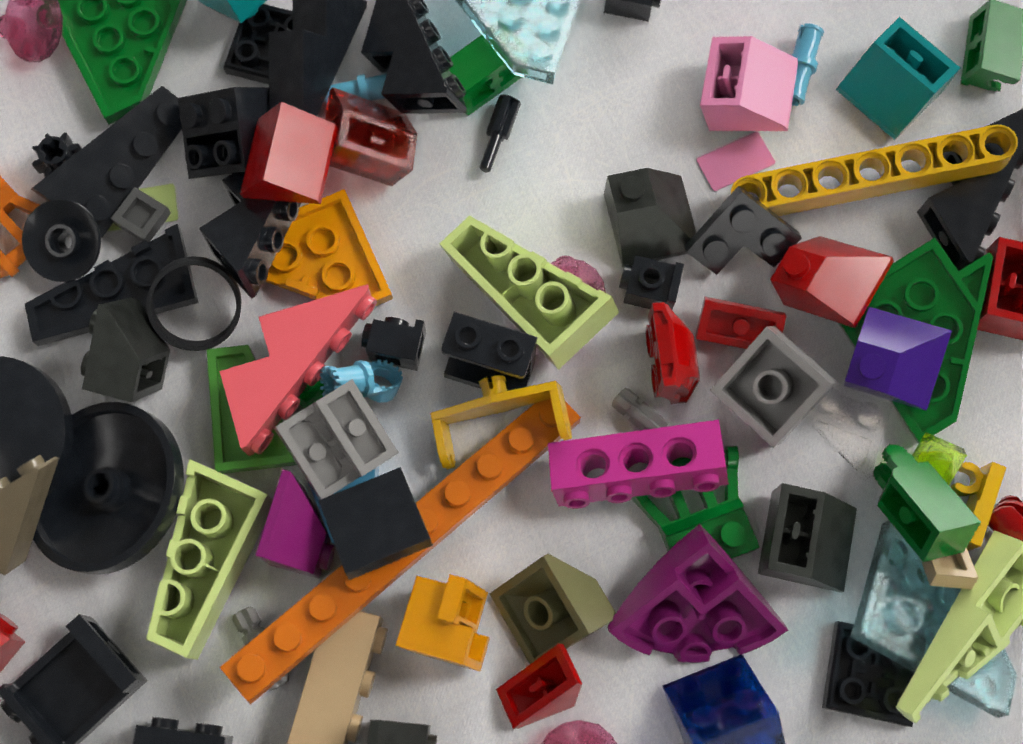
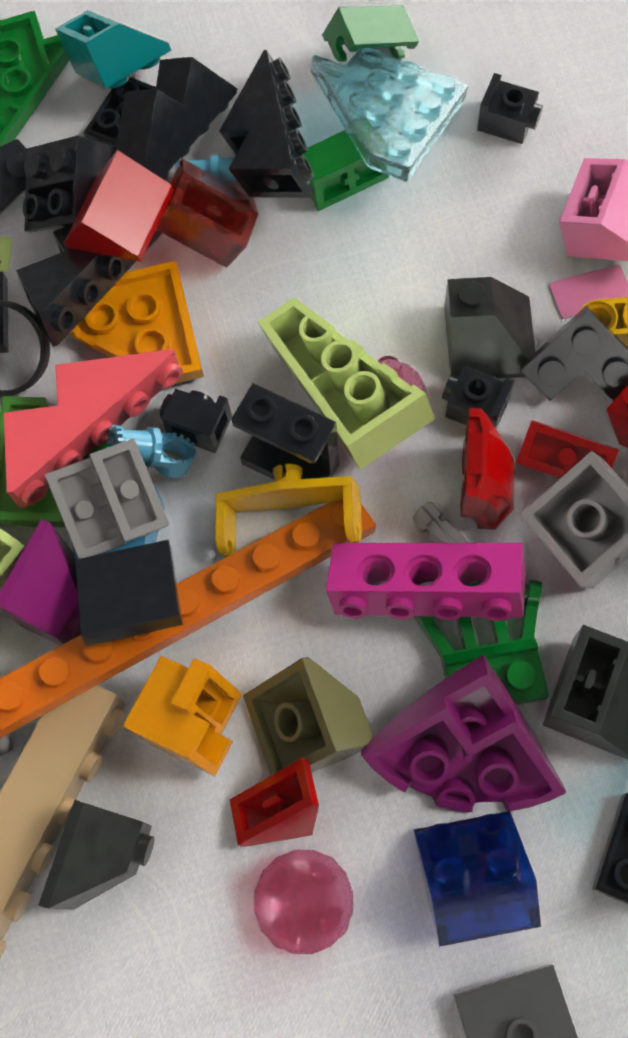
camera: 20 degrees right, 5 degrees down
(499, 128) = (347, 224): black axle -> none

